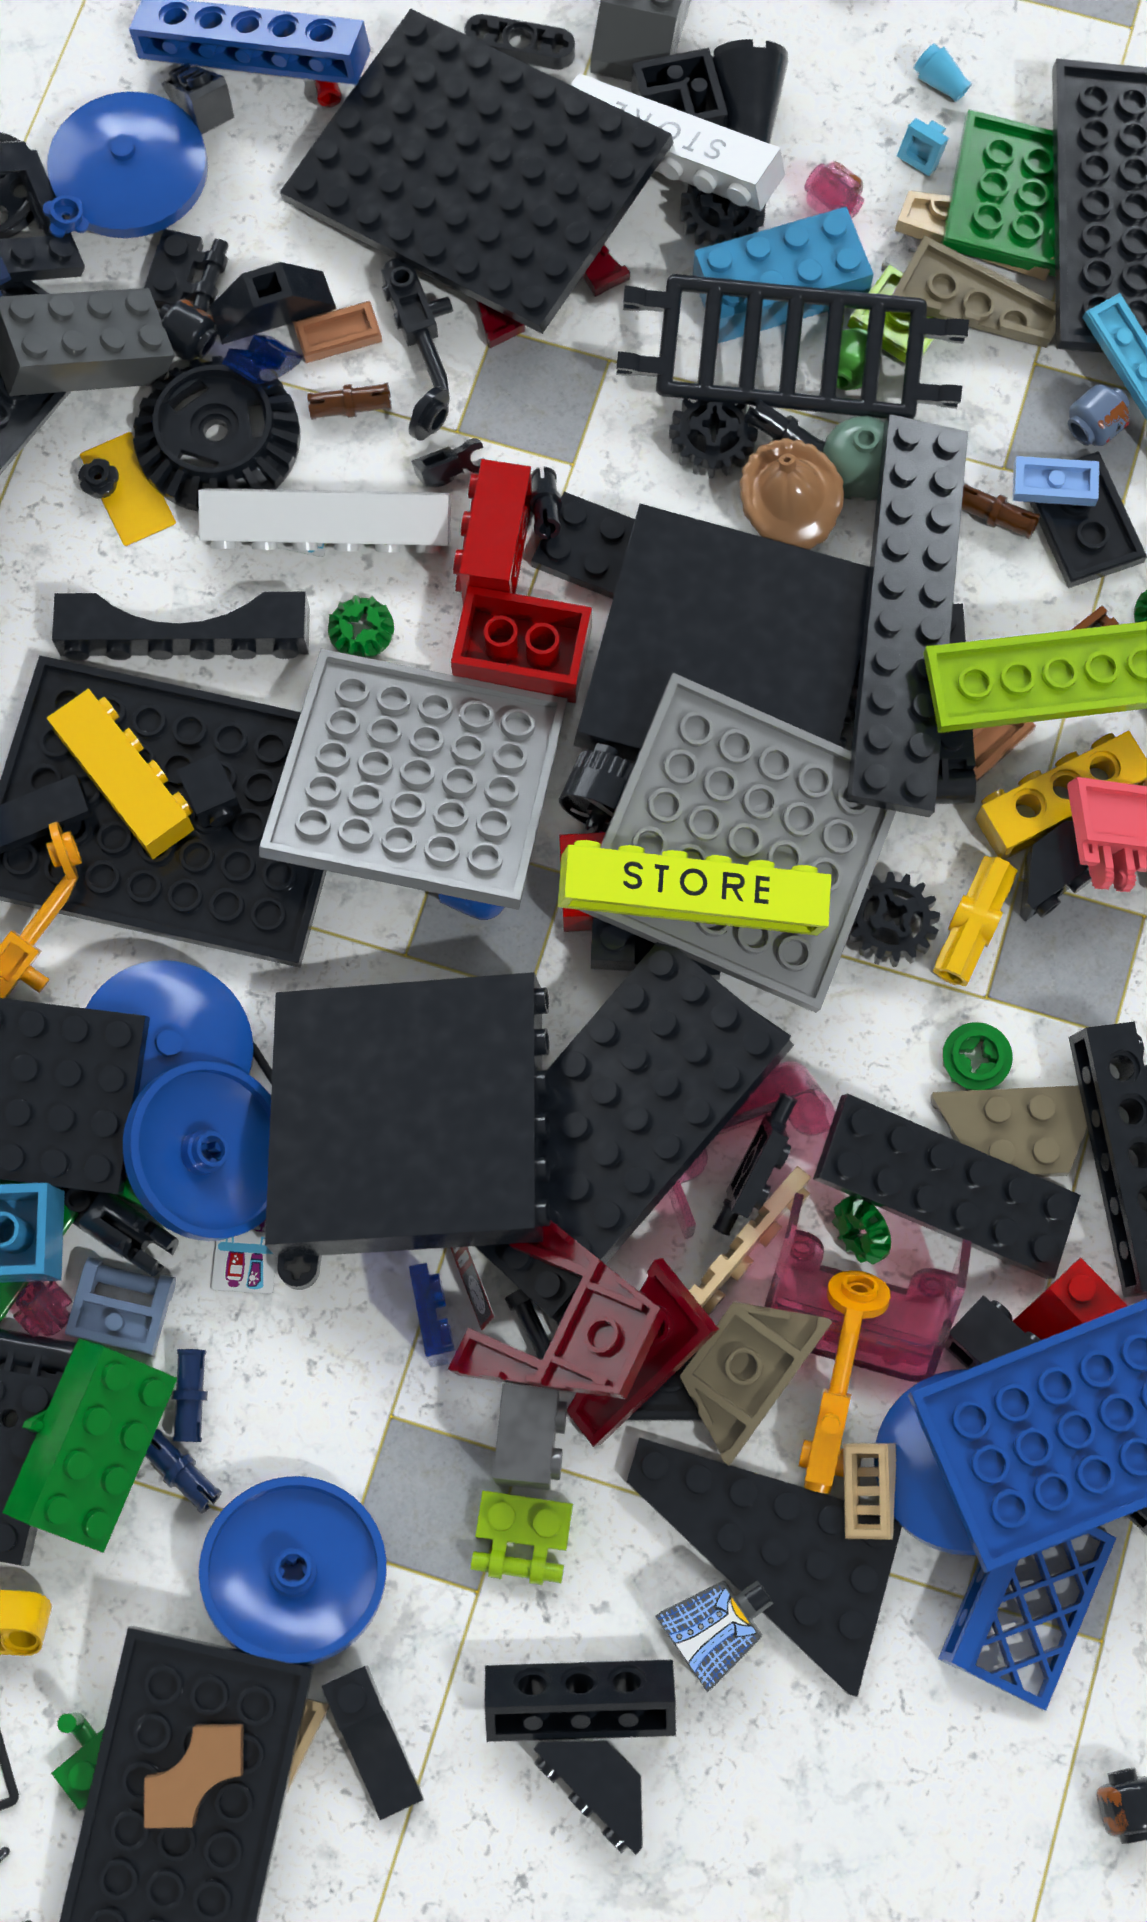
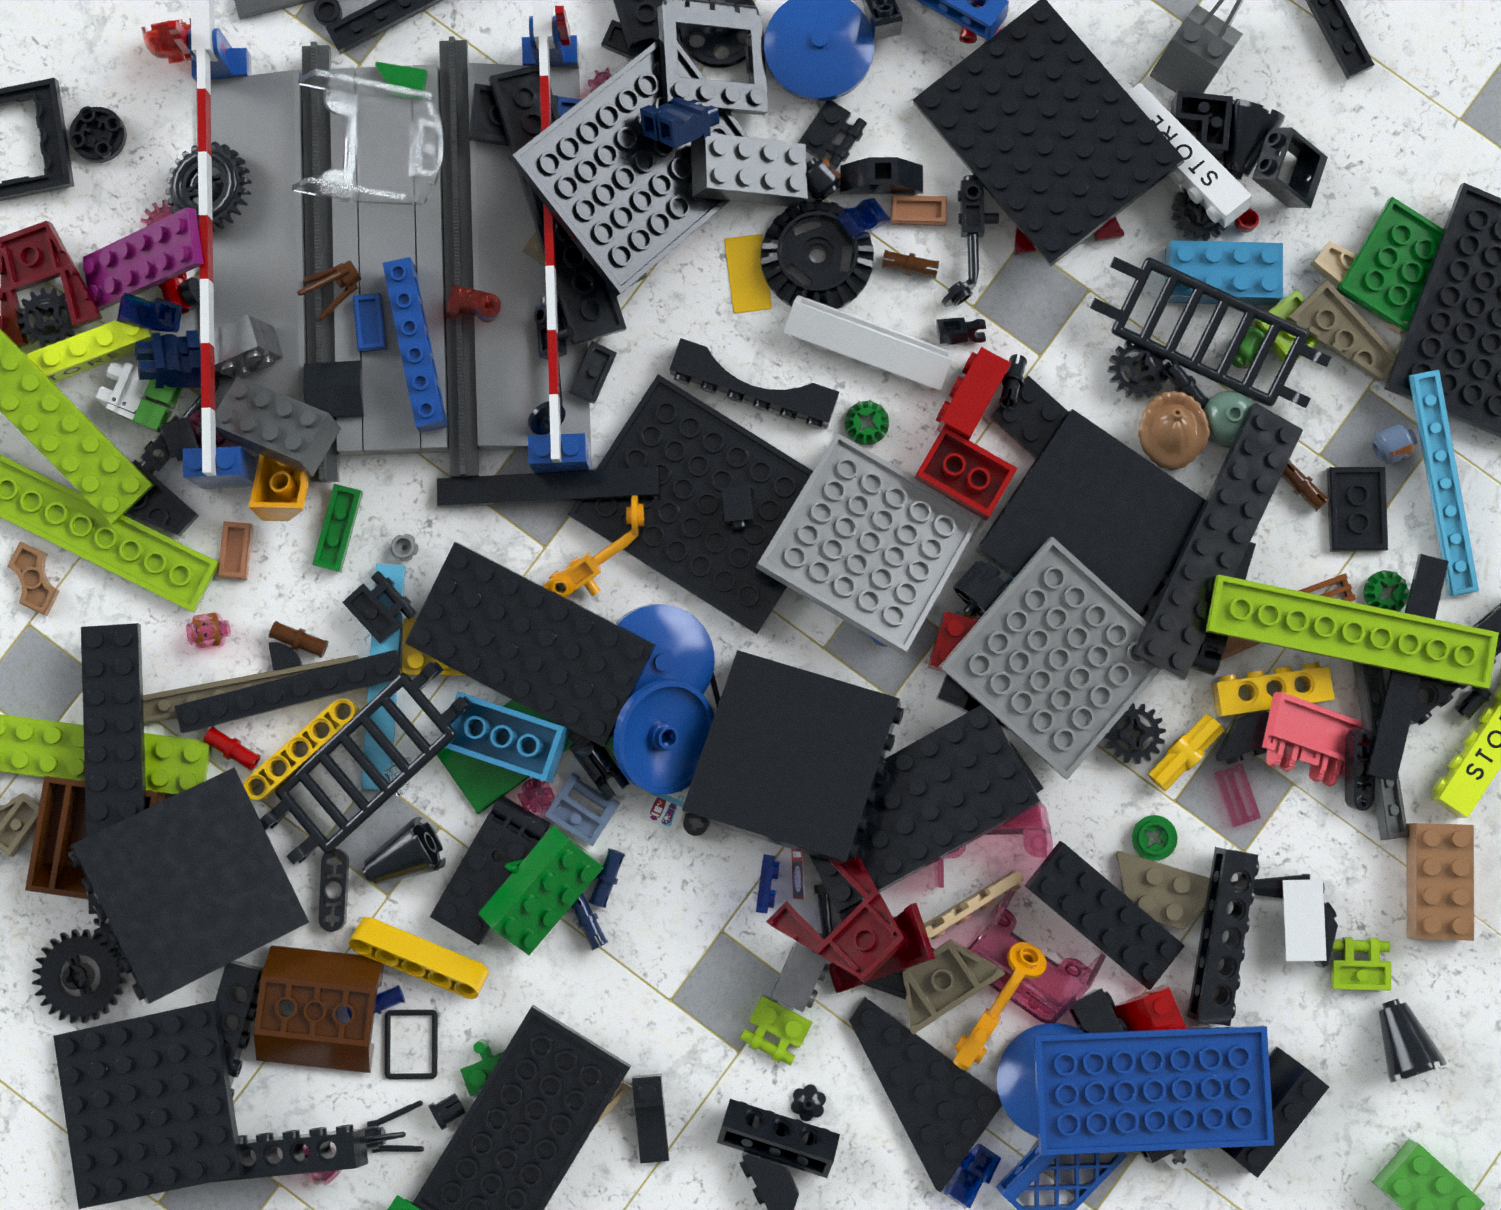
camera: 20 degrees right, 10 degrees up
(49, 1846) = (447, 1110): none -> black bush
(67, 206) = (772, 69): blue plate -> none
(102, 487) = (726, 267): black plate -> none
(121, 773) = (686, 475): yellow brick -> none
(175, 1794) = (531, 1109): medium nougat tile -> none
(293, 1570) = (636, 1004): blue dish -> none
(530, 55) = (1088, 36): black beam -> none
(594, 1628) = (805, 1095): none -> black plant
(694, 889) = (1015, 683): neon yellow brick -> none
(715, 1628) = (871, 1124): torso -> none
(766, 1151) = (998, 859): black plate -> none
(787, 203) = (1247, 221): none -> red hinge
(833, 188) = (1280, 223): clear pink head -> none
(842, 98) = (1309, 163): none -> black window
(855, 1215) = (1039, 915): green gear -> none
(886, 1490) = (1000, 1081): tan slope -> none
(896, 1645) = (974, 1170): none -> clear blue slope
(923, 145) = (1352, 210): medium azure tile -> none
(941, 72) = (1385, 160): medium azure cone -> none
(1055, 481) = (1348, 481): light blue plate -> none
(1059, 967) = (1227, 799): none -> clear pink tile

